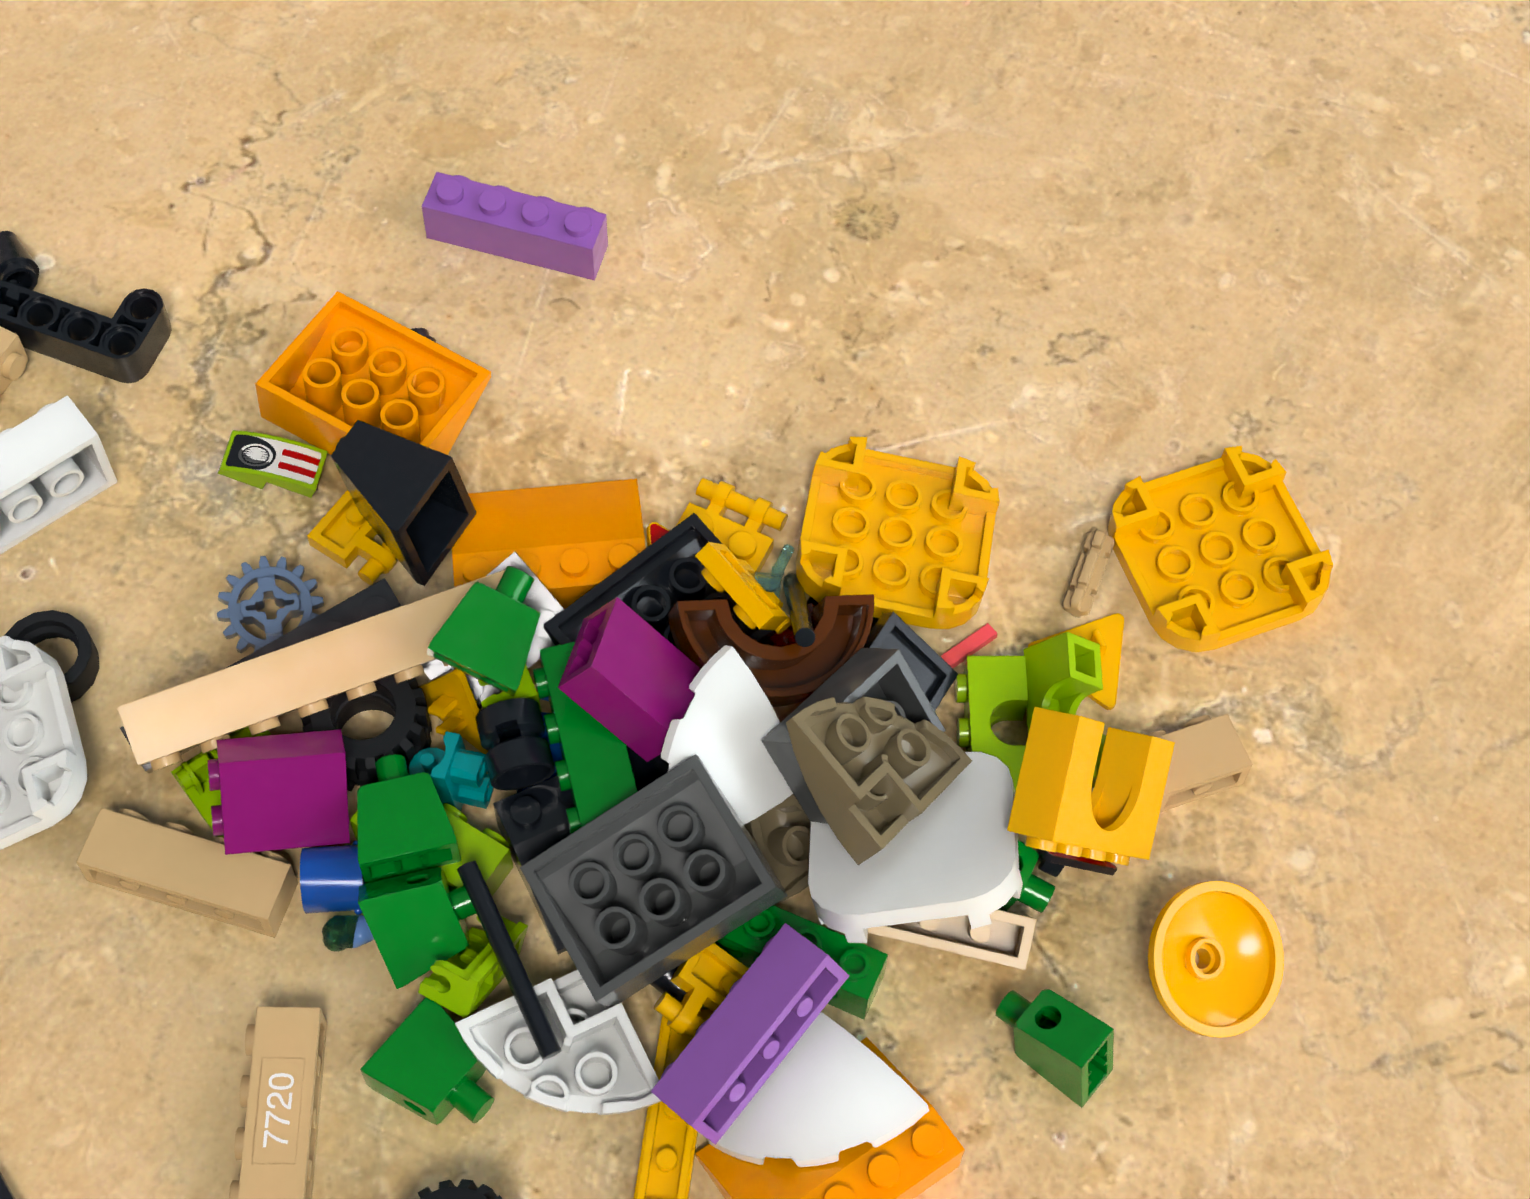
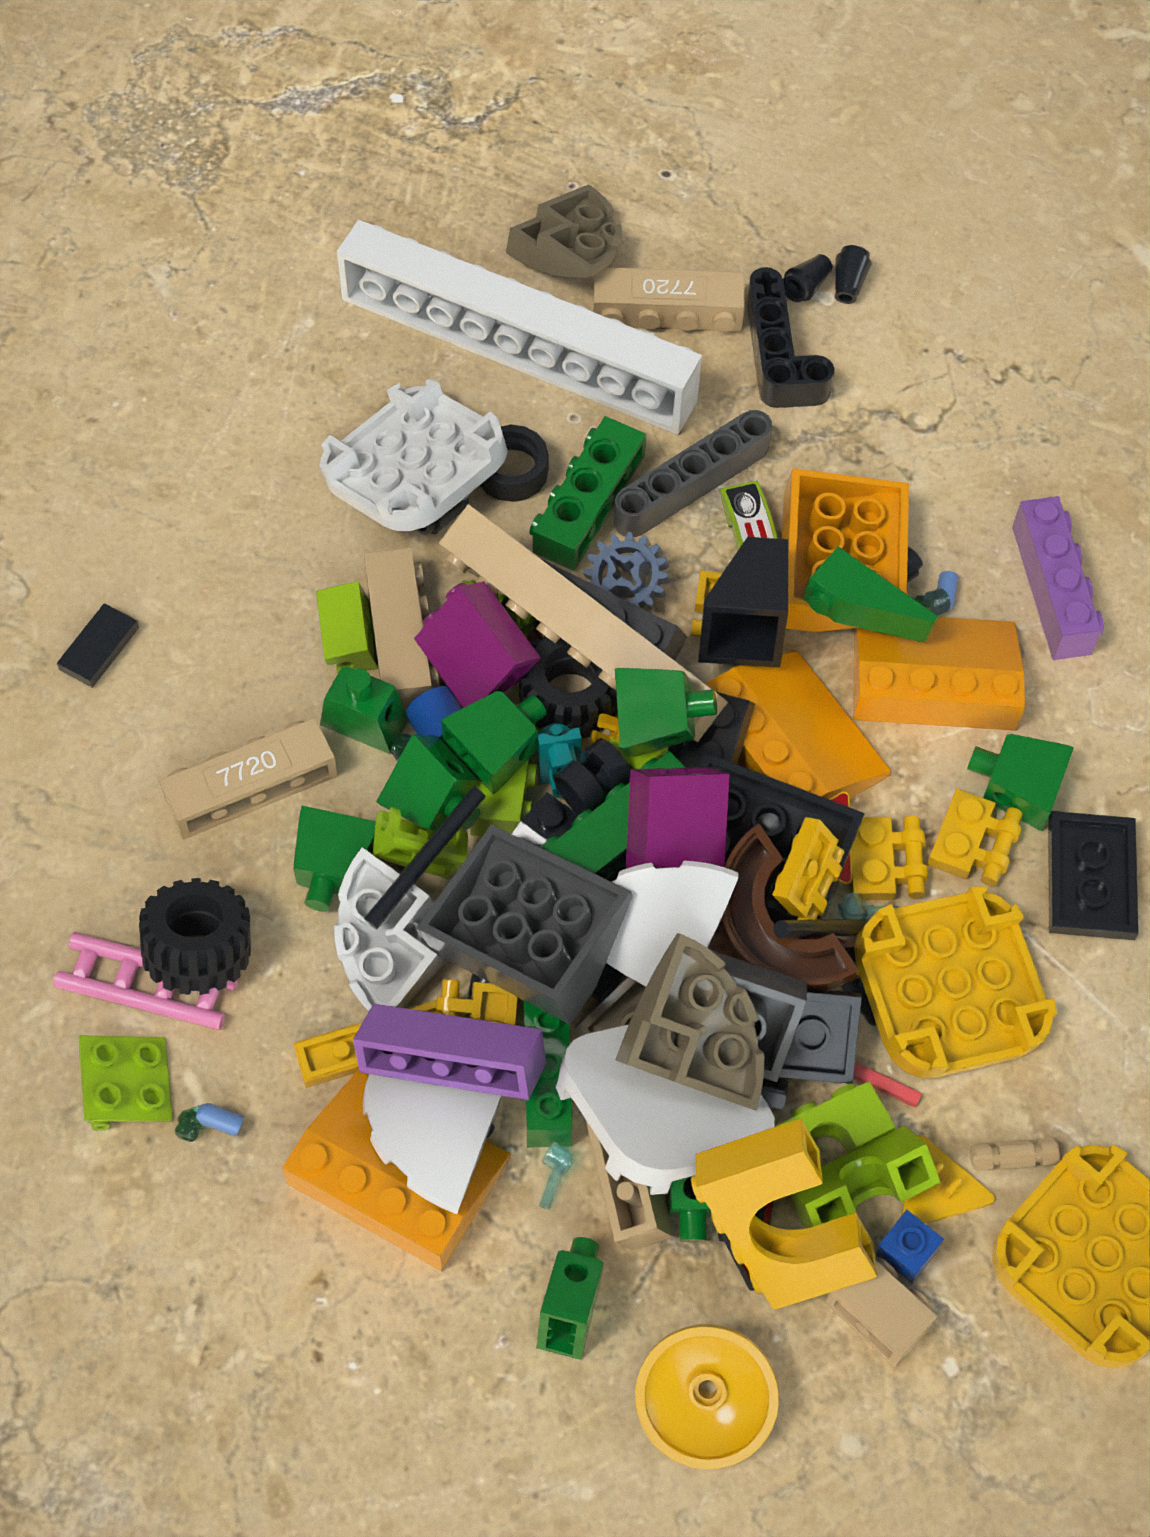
camera: 65 degrees right, 0 degrees up
(35, 220) = (850, 272): none -> black cone
(109, 540) = (569, 541): none -> green brick
(152, 927) = (346, 627): none -> lime hinge
(184, 505) = (684, 488): none -> dark grey beam
(269, 954) = (360, 705): none -> green torso
(453, 394) = (863, 599): none -> green slope
(473, 335) = (943, 598): none -> arm
(556, 379) = (957, 678): none -> light orange slope
(714, 365) = (1023, 775): none -> green torso
(740, 452) = (963, 831): none -> yellow plate
(845, 363) = (1092, 875): none -> black plate
(901, 990) = (560, 1162): none -> clear light blue hand
(1144, 704) = (909, 1246): none -> blue brick

